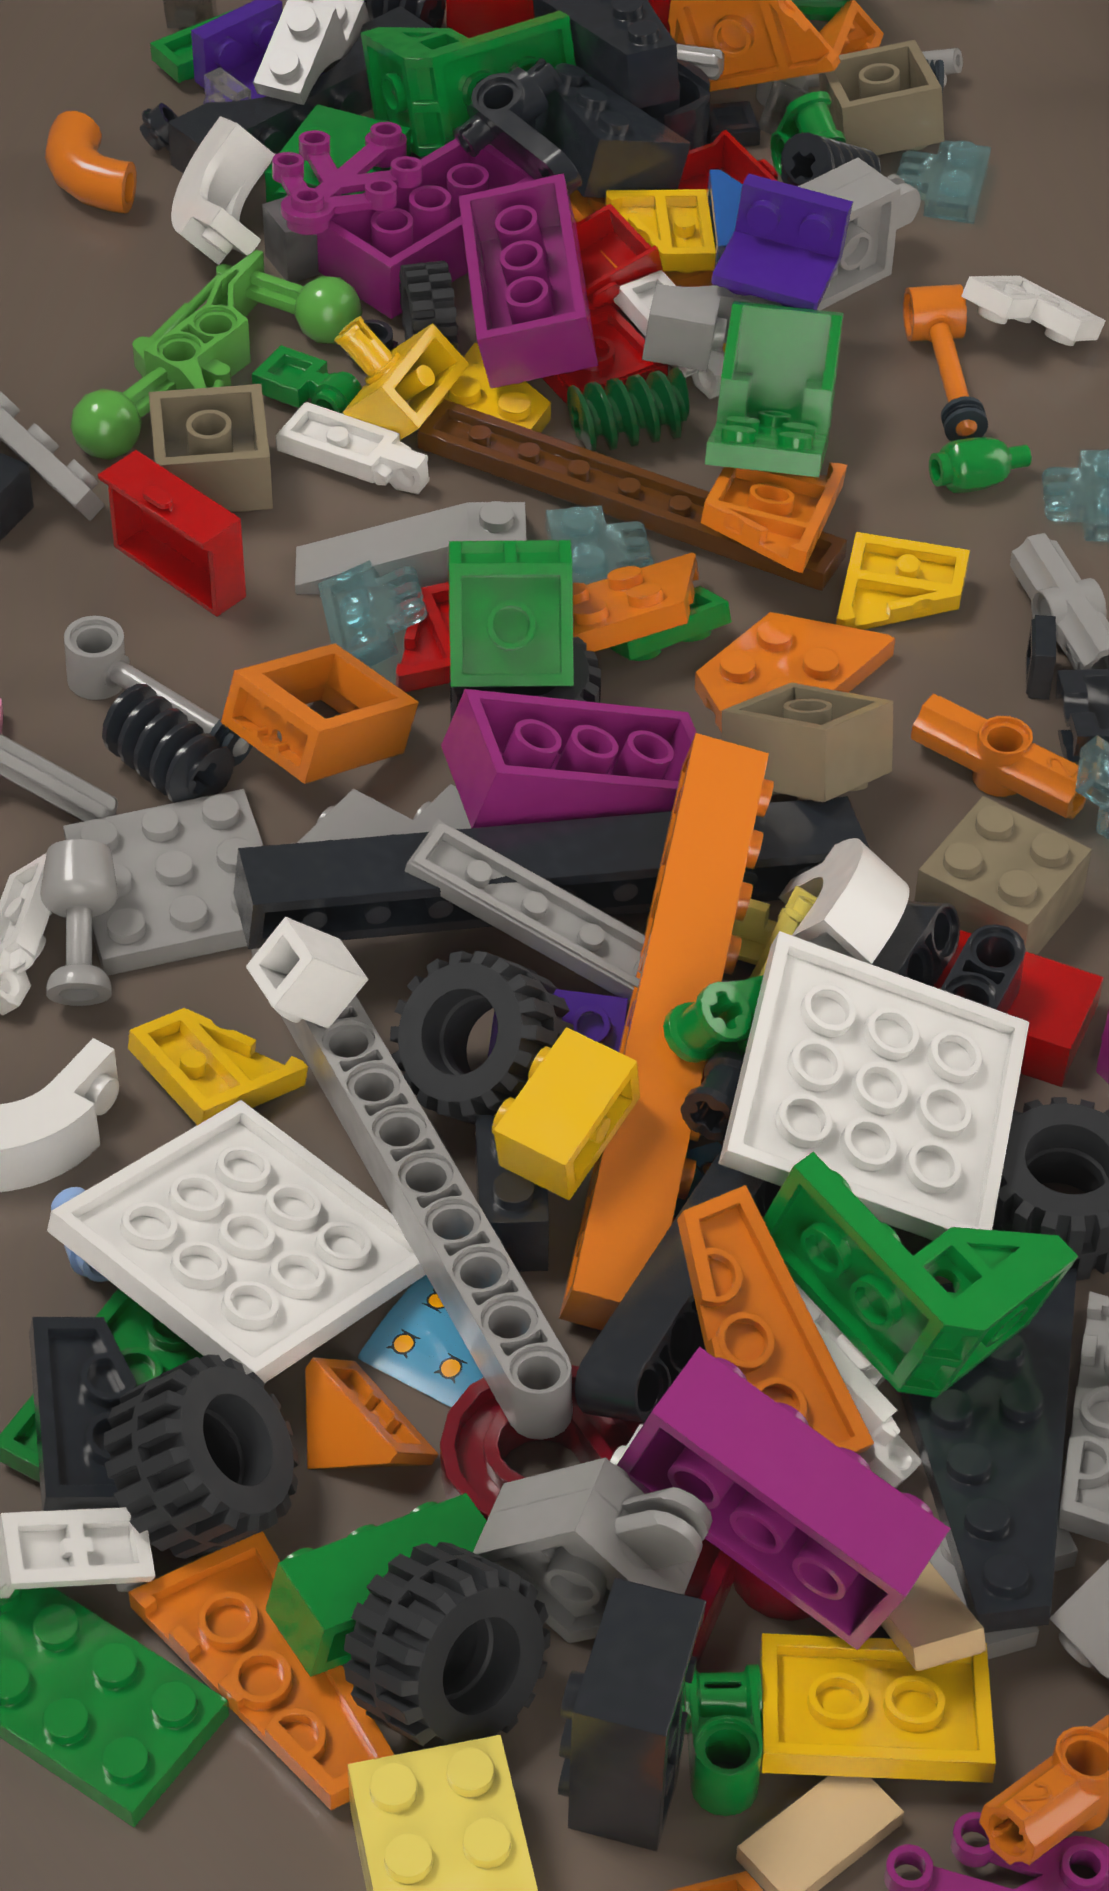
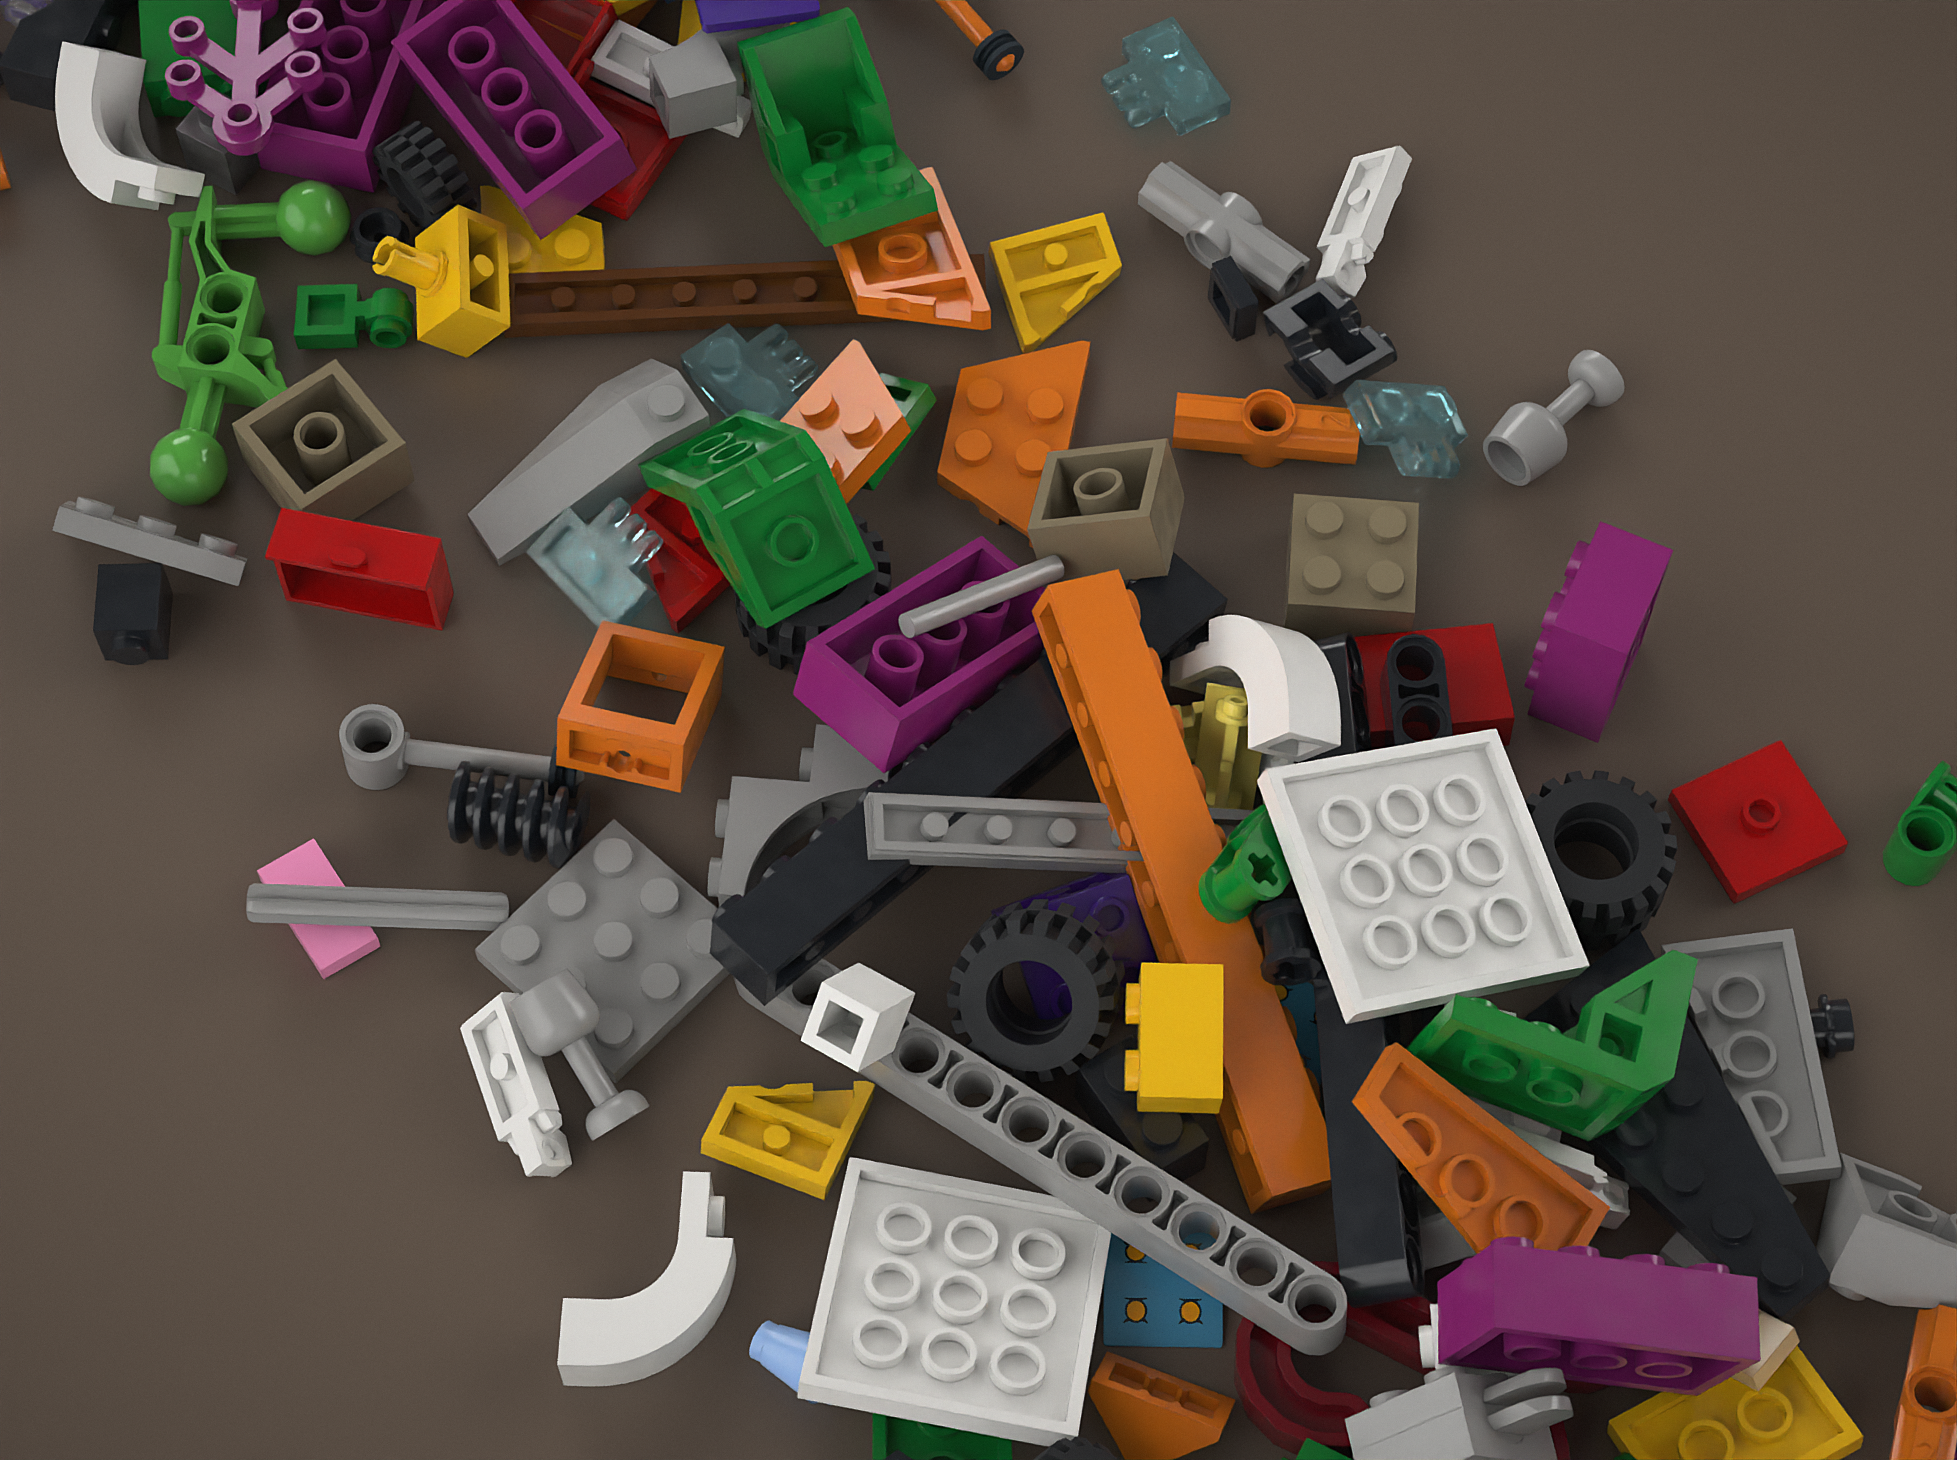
camera: 30 degrees left, 15 degrees up
(353, 448) = (447, 372): white hinge -> none
(623, 732) = (981, 596): none -> light grey bar
(629, 408) = (686, 199): dark green piece -> none
(976, 463) = (1040, 102): green plant -> none

